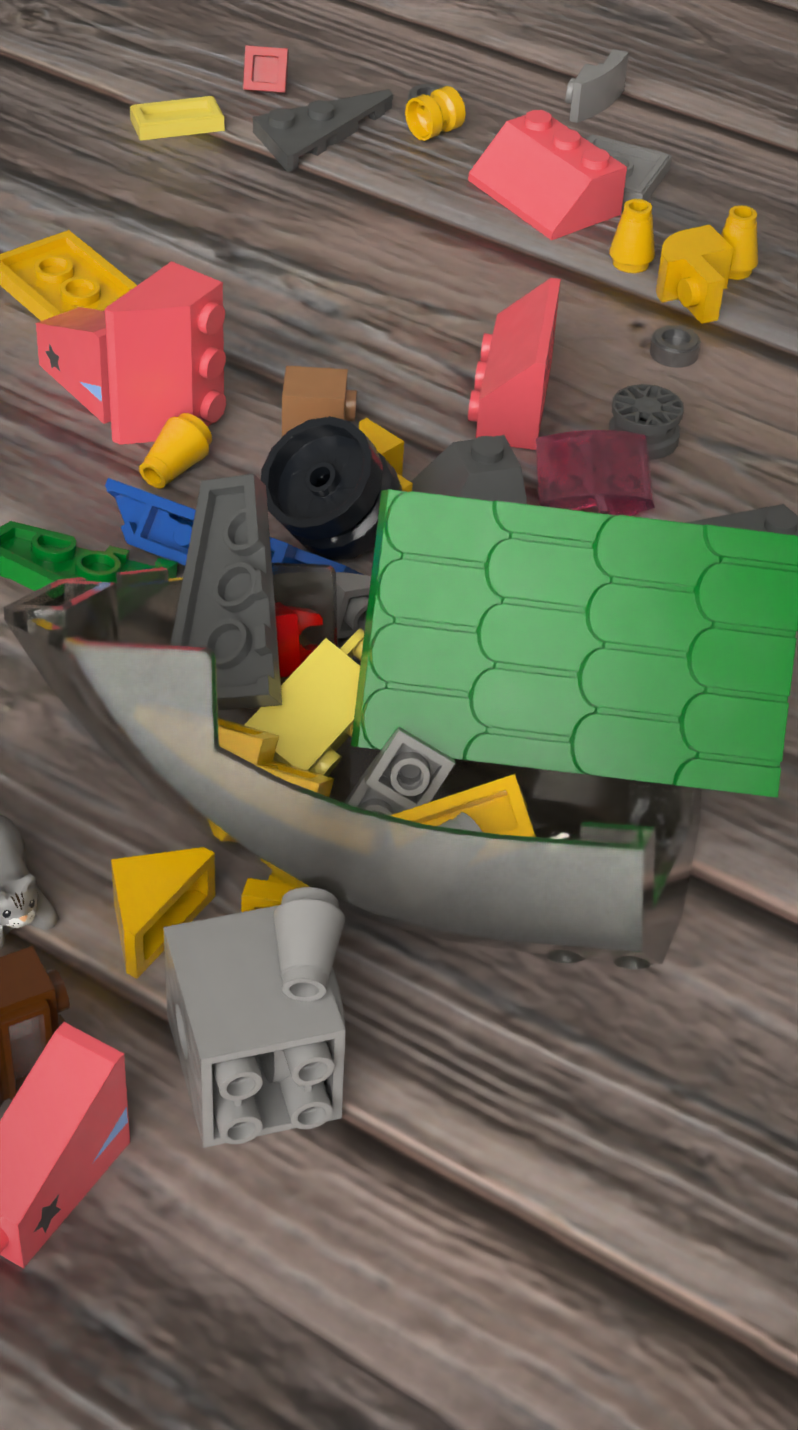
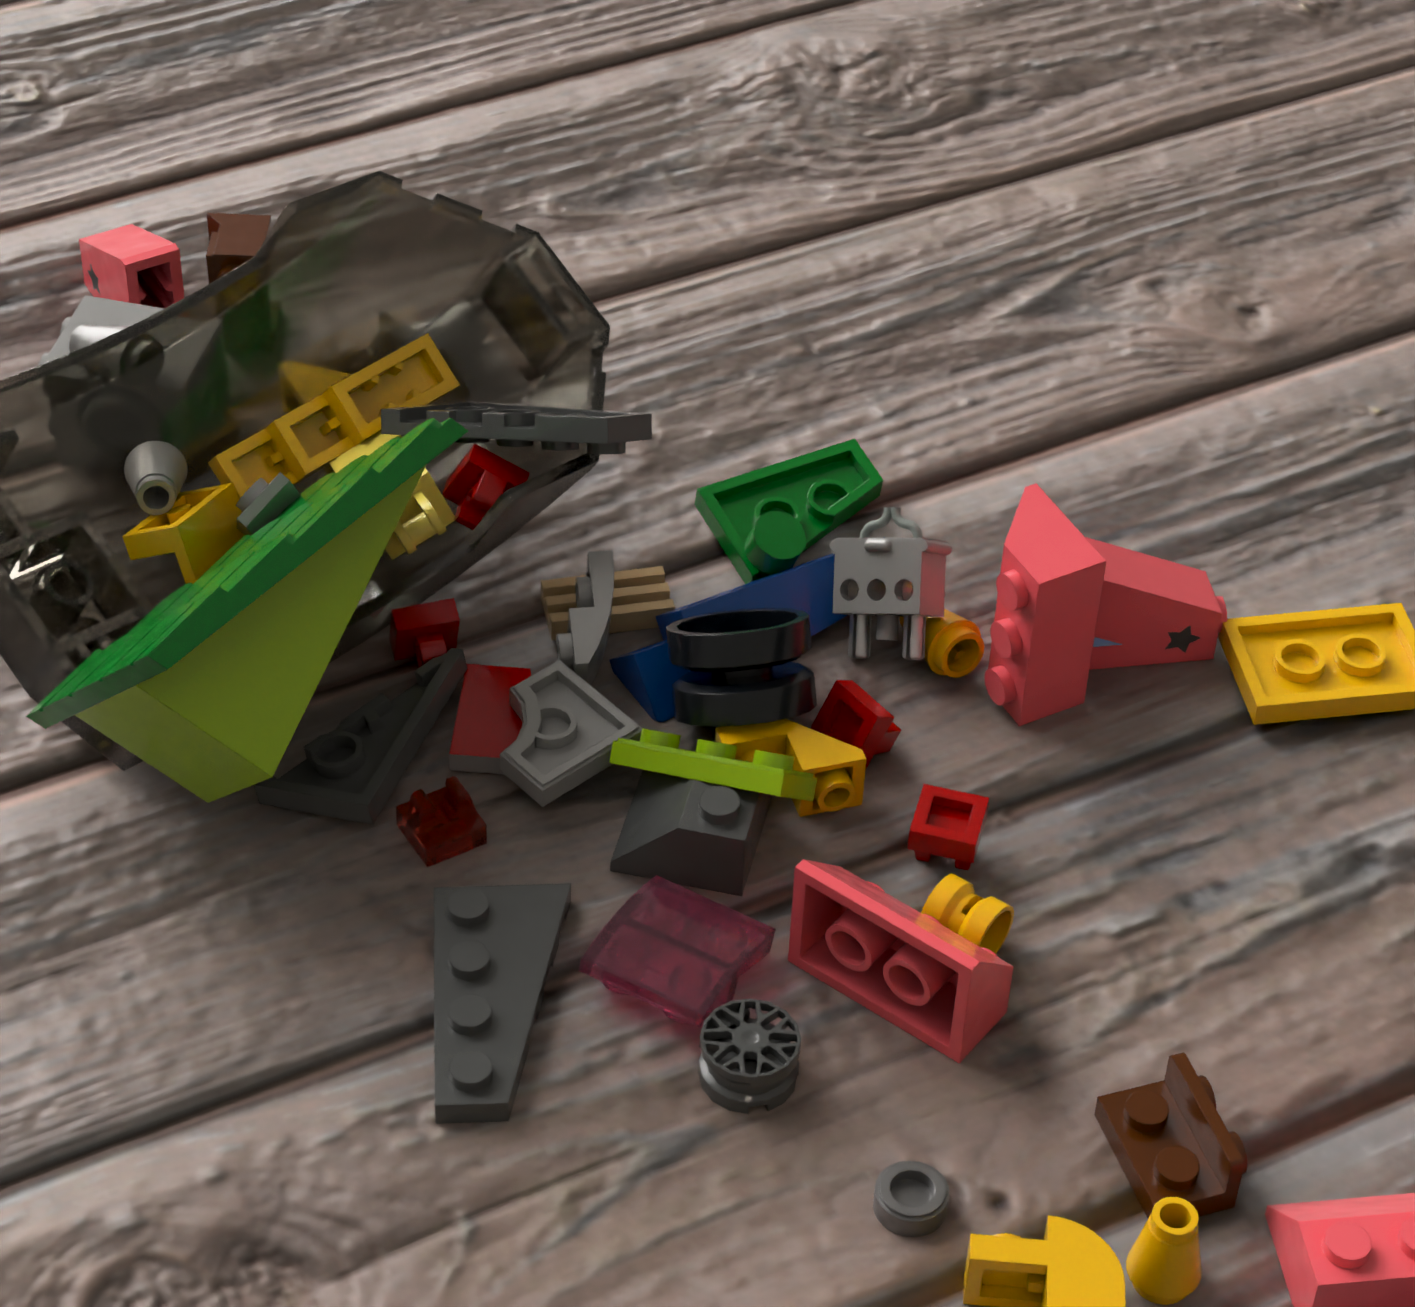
camera: 120 degrees right, 0 degrees up
(147, 542) = (775, 542): none -> green piece
(170, 447) = (890, 582): none -> light grey piece
(316, 394) = (960, 757): medium nougat brick -> none
(382, 387) = (948, 825): none -> red tile
(442, 452) = (714, 764): none -> lime tile
(452, 366) = (968, 914): none -> yellow wheel
(545, 254) = (1174, 1140): none -> reddish brown bracket

